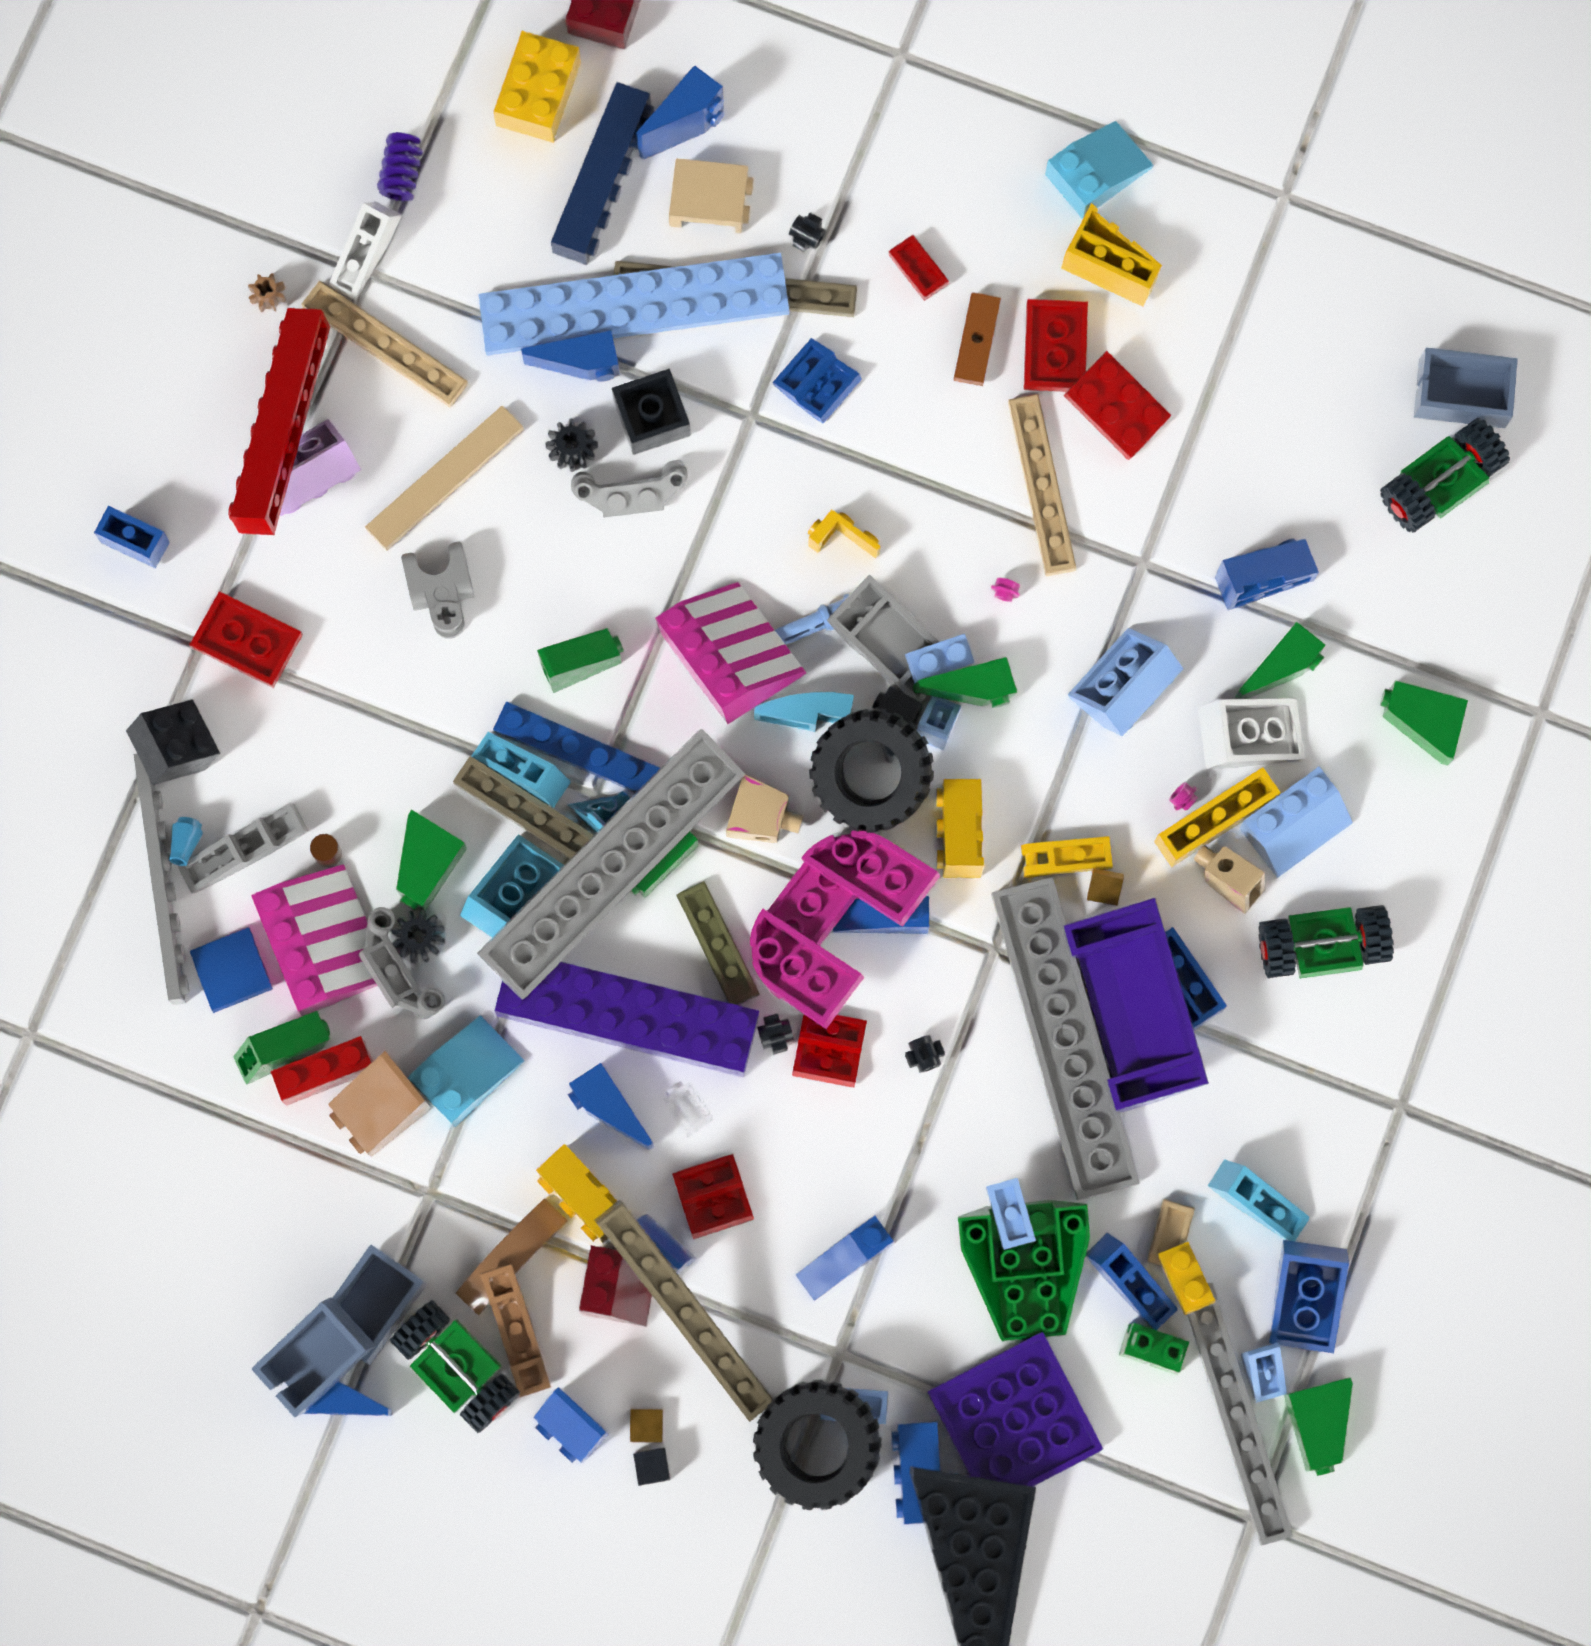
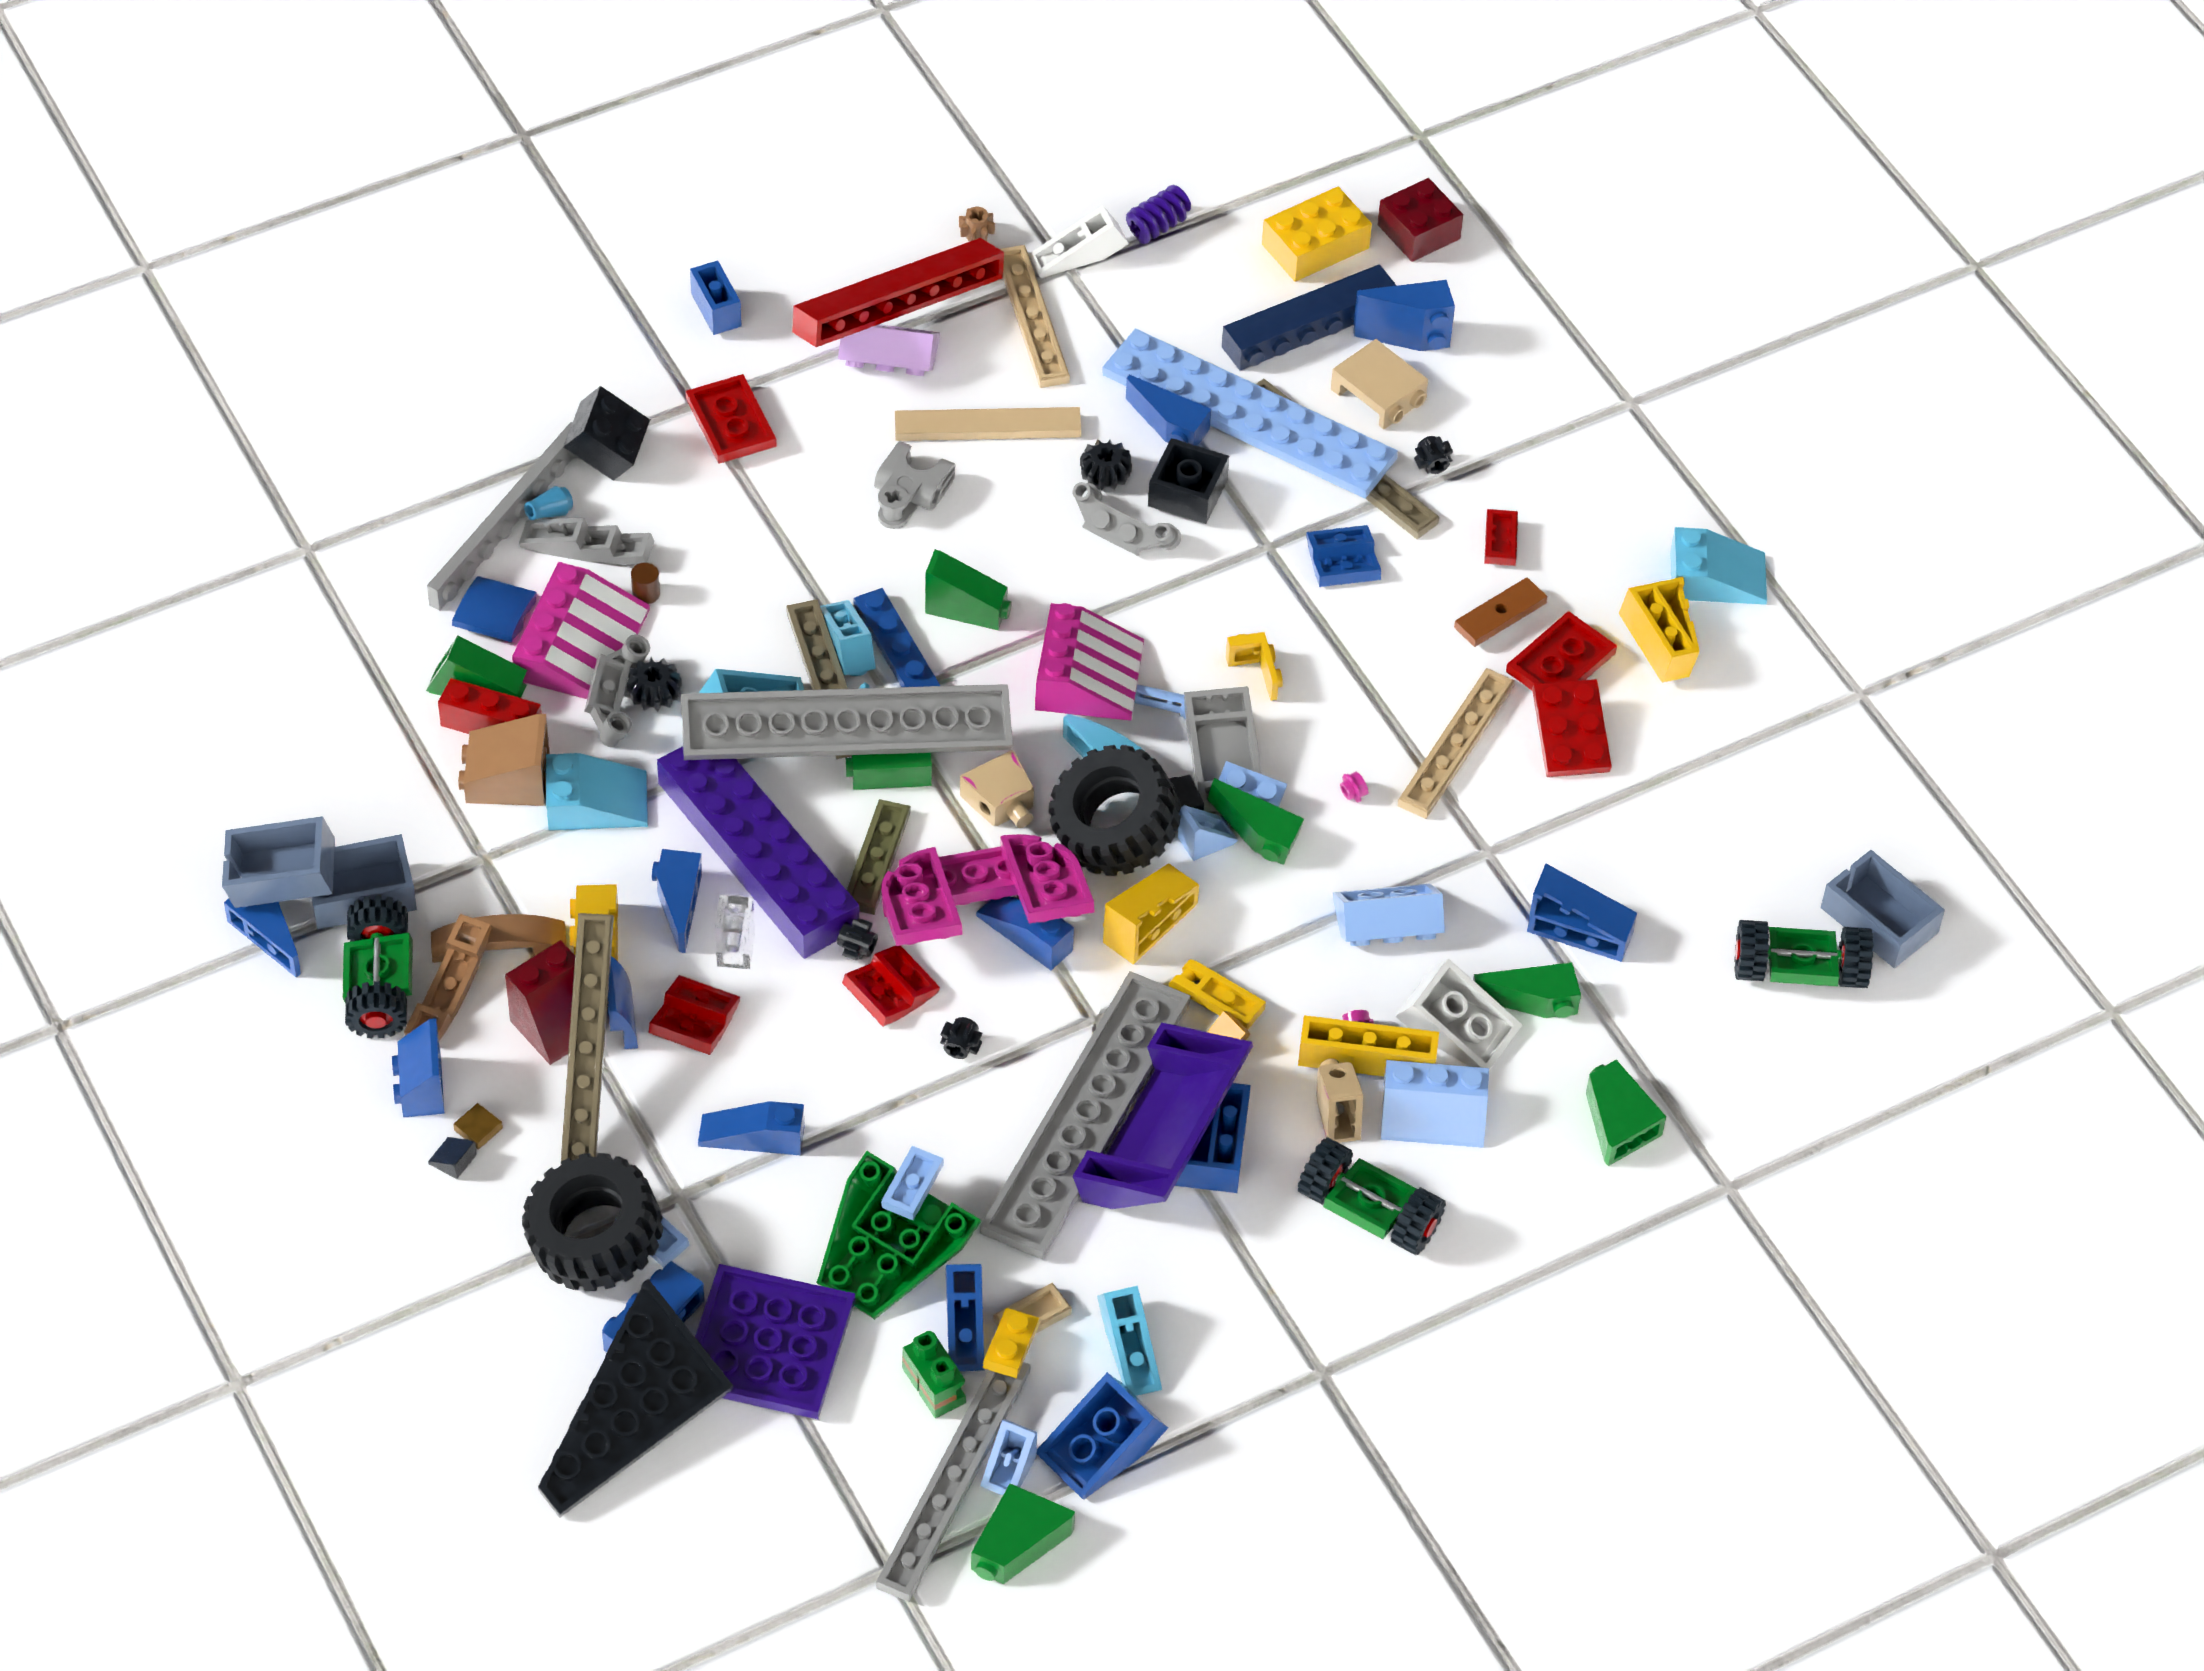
camera: 40 degrees right, 25 degrees down
(426, 861) = (711, 641): green slope -> none

